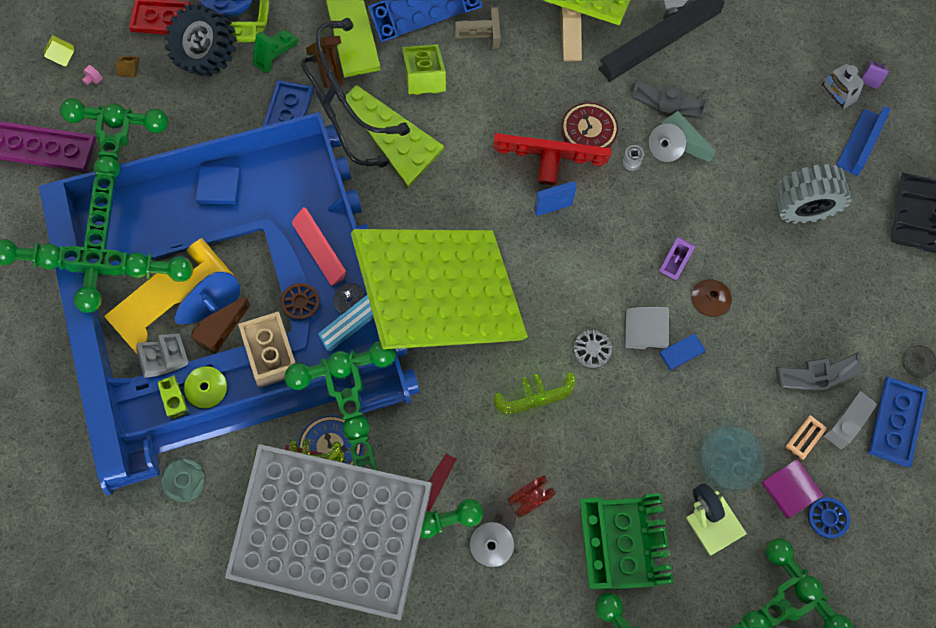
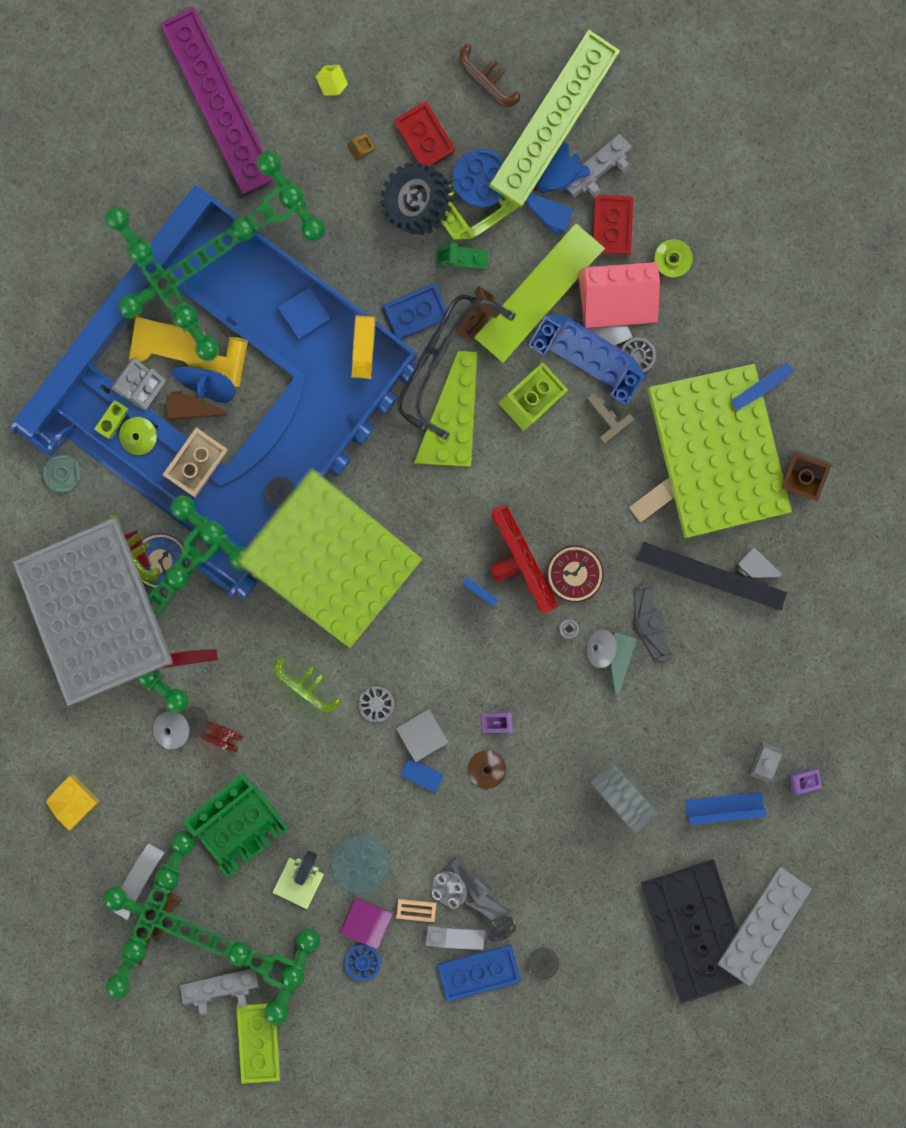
camera: 60 degrees right, 20 degrees up
(92, 75) = (328, 128): bright pink tile -> none
(282, 150) = (363, 347): none -> yellow slope
(300, 301) = (252, 455): reddish brown wheel -> none
(319, 247) = (306, 435): coral slope -> none
(347, 324) = (252, 506): medium azure tile -> none
(804, 393) = (449, 889): none -> light grey dish
(868, 372) = (500, 928): none -> clear smoke piece

